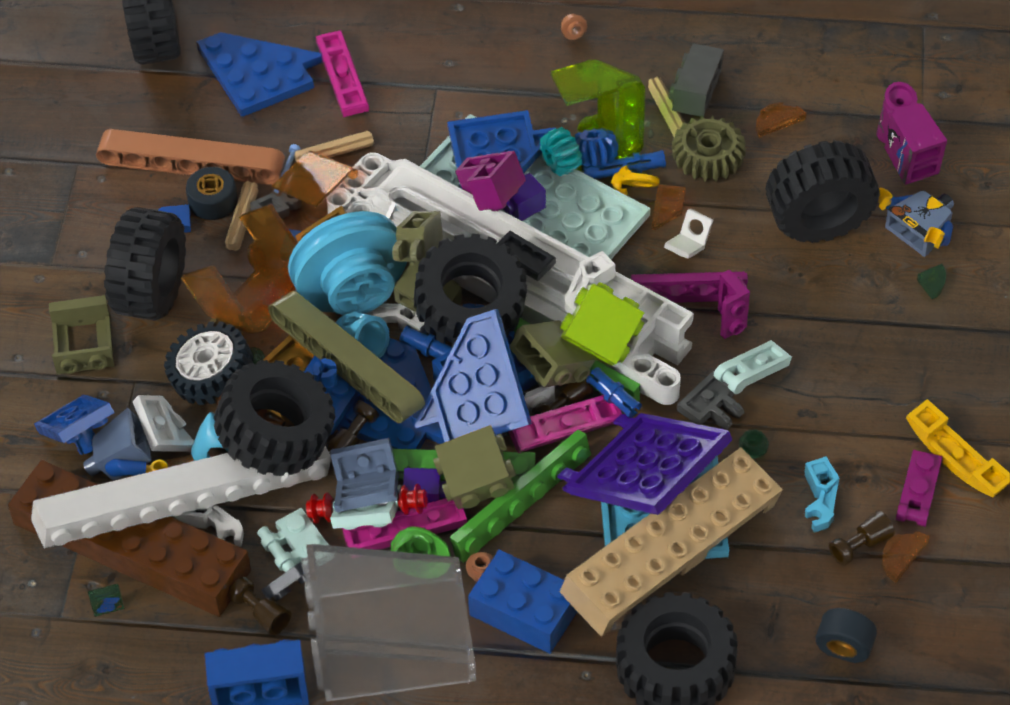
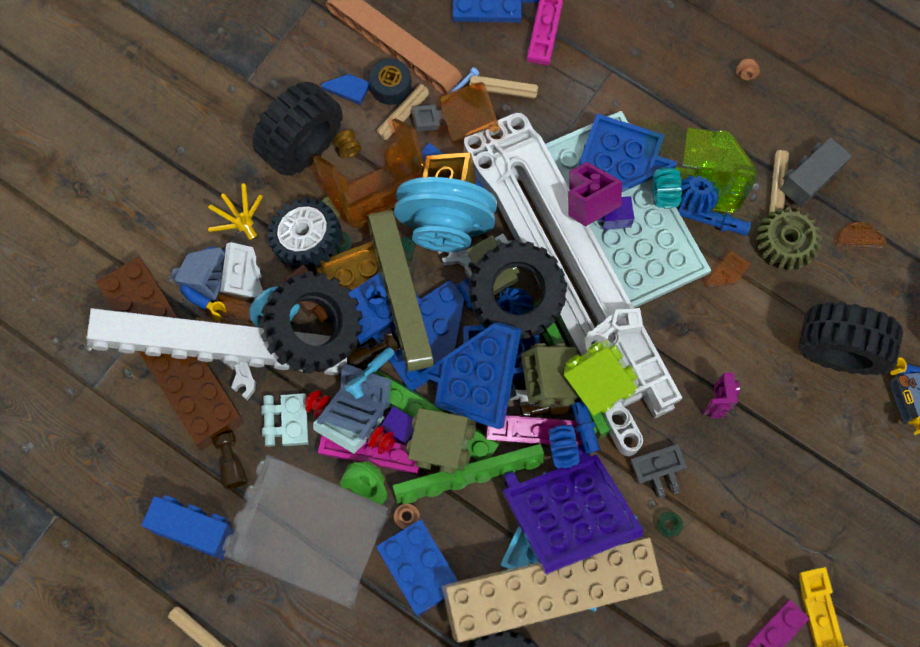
camera: 25 degrees right, 20 degrees up
(76, 421) = (180, 234): blue plate -> none
(78, 313) = (236, 135): olive panel -> none
(106, 600) = (126, 395): clear green tile -> none
(132, 386) = (243, 220): none -> yellow plant
(198, 260) = (347, 143): none -> pearl gold wheel
(280, 586) = (256, 452): plate -> none
(356, 454) = (354, 385): none -> medium azure piece
(368, 330) = (427, 271): medium azure piece -> none
(417, 236) = (504, 220): olive hinge -> none
(532, 258) = (579, 277): black plate -> none
(603, 414) = (564, 446): none -> blue gear
(626, 177) = (708, 230): yellow piece -> none
(685, 286) = (700, 354): magenta fence -> none
(687, 242) = (723, 315): white bracket -> none
(752, 366) = (708, 458): light aqua plate -> none
(823, 507) = (693, 610): medium azure piece -> none
(933, 280) = (897, 453): clear green tile -> none

